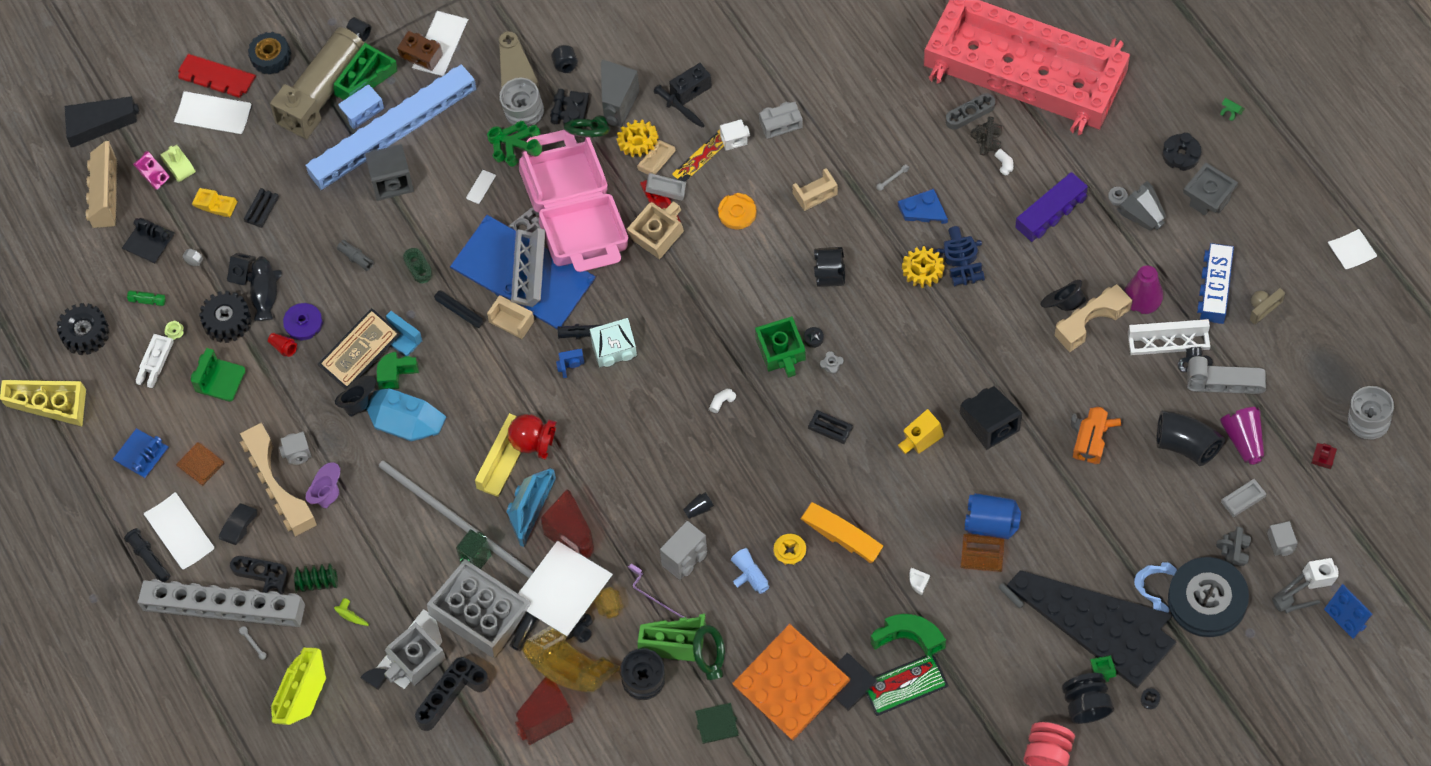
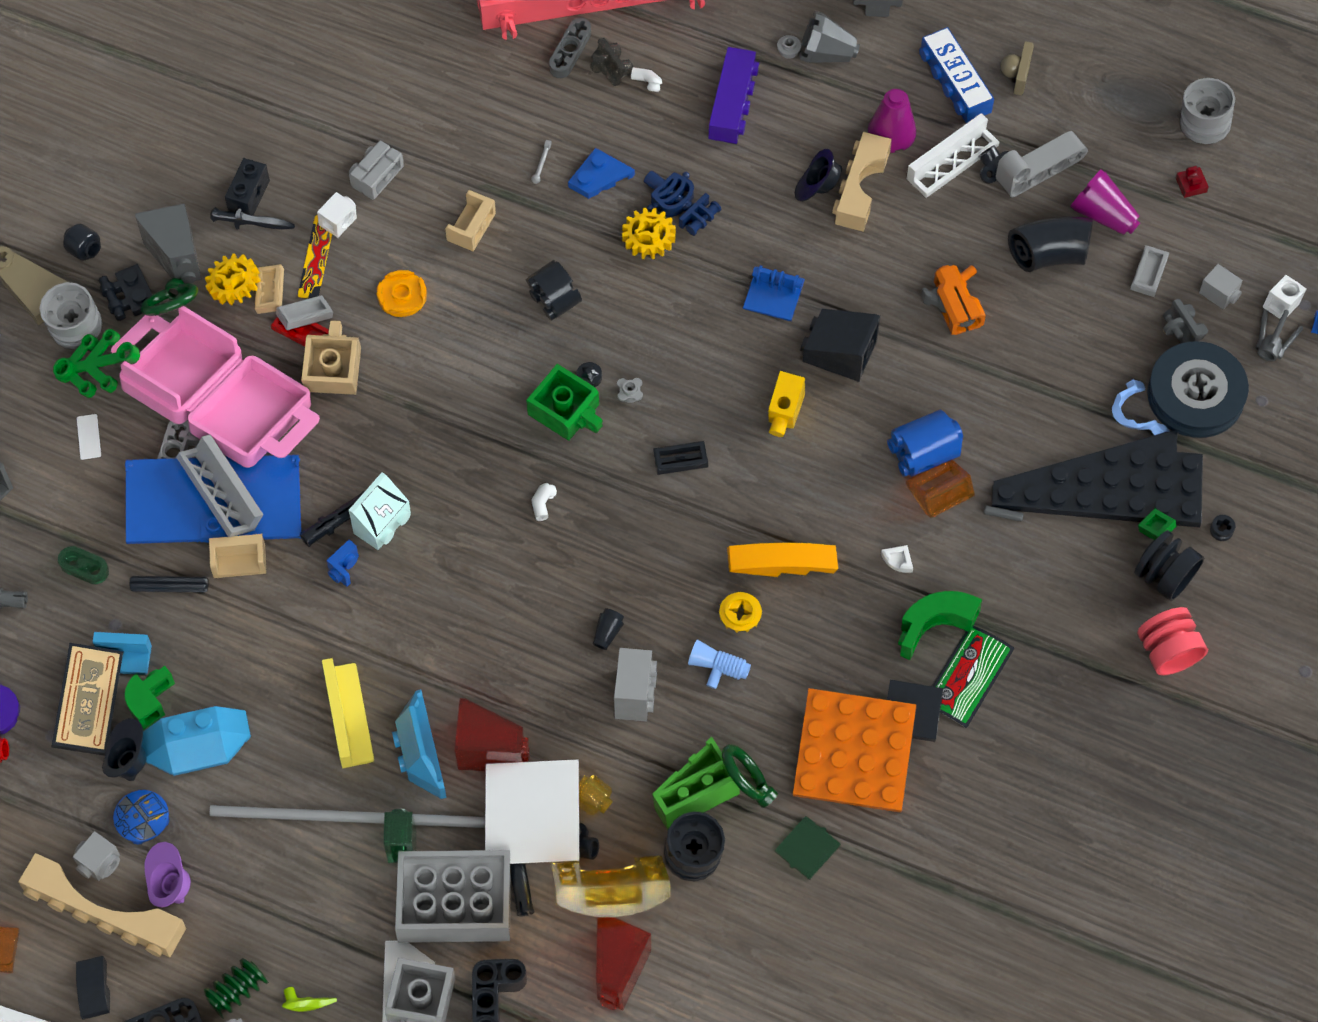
camera: 40 degrees left, 0 degrees up
(339, 441) = (141, 816): none -> blue dish
(530, 434) = (365, 667): red tile -> none
(638, 571) = (596, 741): lavender piece -> none
(974, 356) = (773, 293): none -> blue hinge

